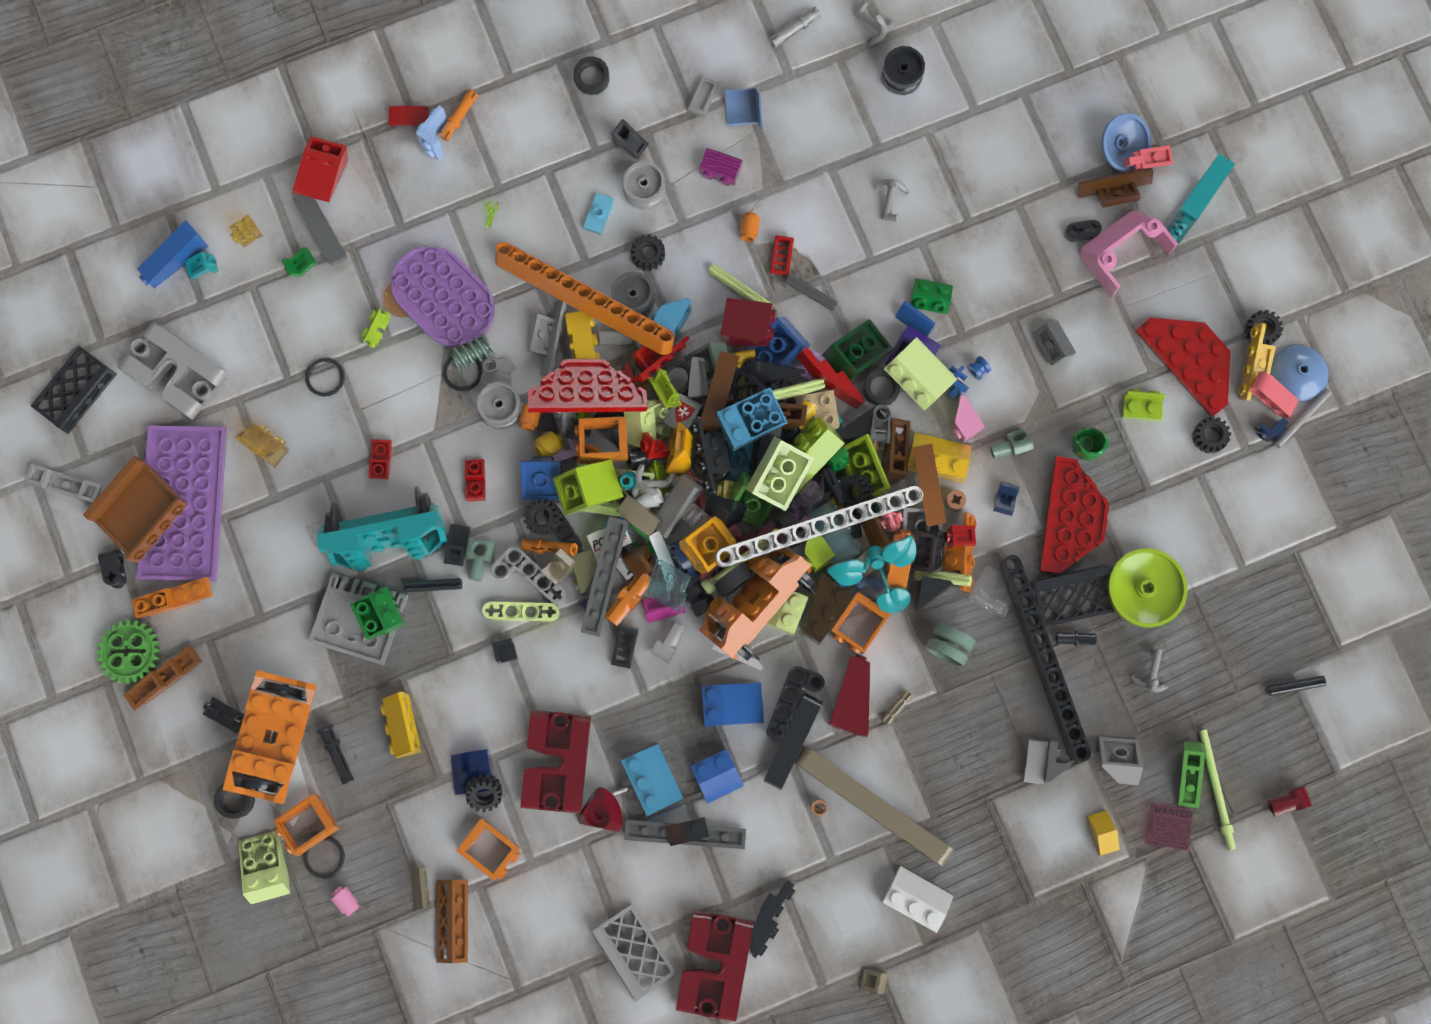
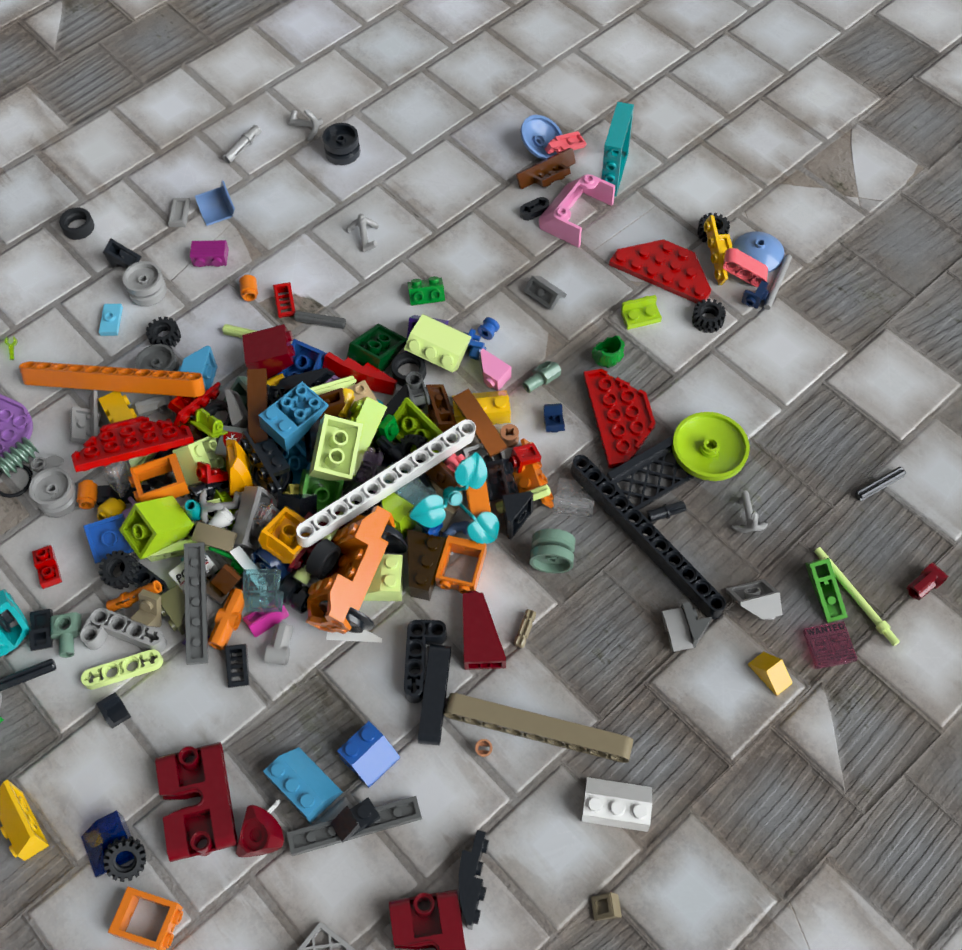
camera: 20 degrees left, 20 degrees down
(732, 704) = (361, 681): blue slope -> none
(911, 316) = (417, 307): blue slope -> none

